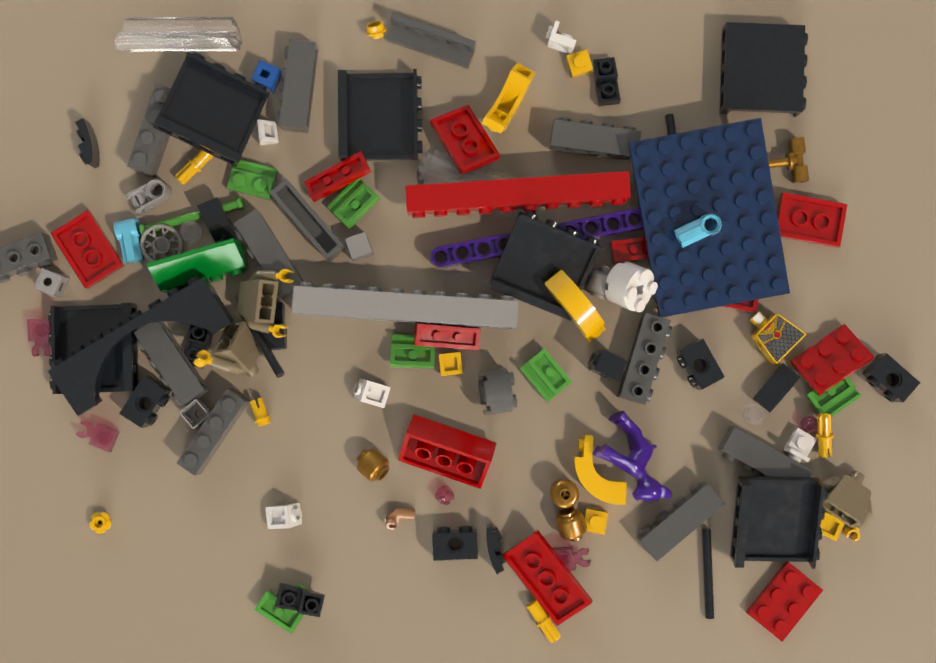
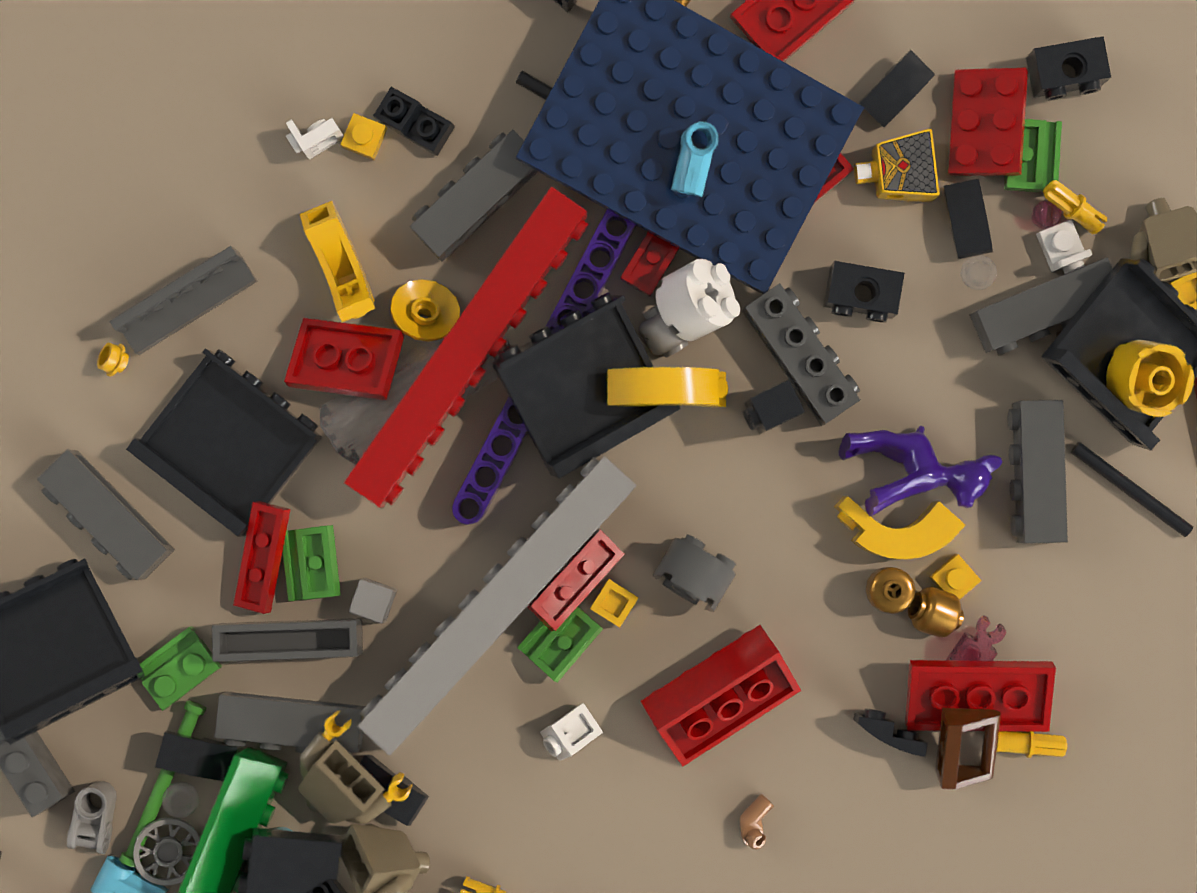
camera: 50 degrees left, 0 degrees up
(193, 166) = (100, 732): yellow axle -> none
(267, 69) = (49, 549): blue piece -> none
(267, 132) = (132, 600): white slope -> none
(267, 352) = (414, 825): black bar -> none
(372, 465) = (663, 803): pearl gold head -> none
(444, 495) = (773, 742): clear pink hinge -> none
(467, 549) = (845, 799): black brick -> none
(524, 155) = (428, 299): none -> yellow dish
(525, 575) = (952, 724): none -> reddish brown tile
(545, 375) = (723, 493): bright green plate -> none
(770, 537) = (1150, 377): none -> yellow brick
(812, 302) = (897, 88): none -> black slope

